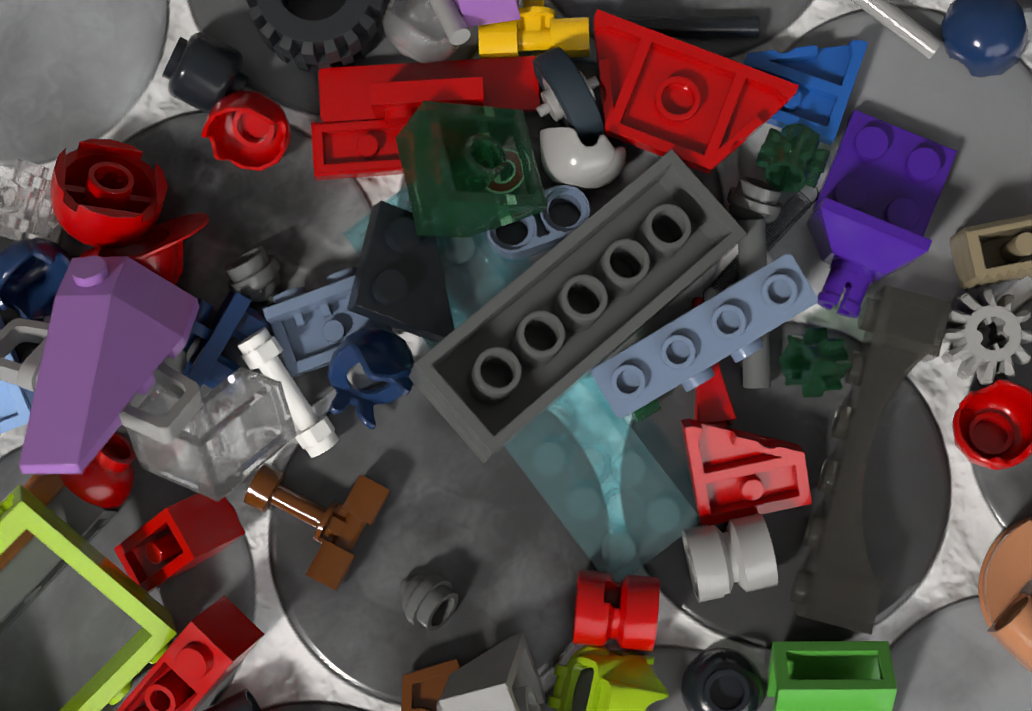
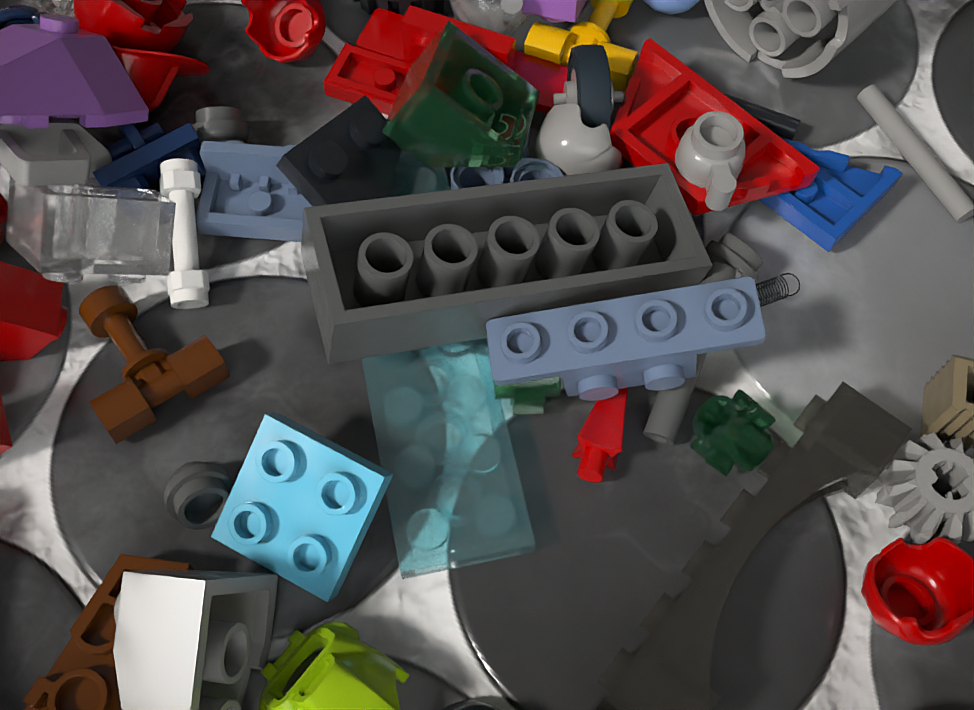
camera: 20 degrees right, 20 degrees down
(383, 358) = (283, 226): dark blue piece -> none
(516, 577) = (301, 505): none -> medium azure plate
(616, 610) = (390, 592): red wheel -> none
(704, 125) = (712, 156): none -> light grey piece
(737, 555) = (548, 594): light grey wheel -> none
(742, 472) = (603, 511): wing -> none
(792, 158) = (787, 236): clear green gear -> none
(875, 207) = (853, 320): dark purple plate -> none

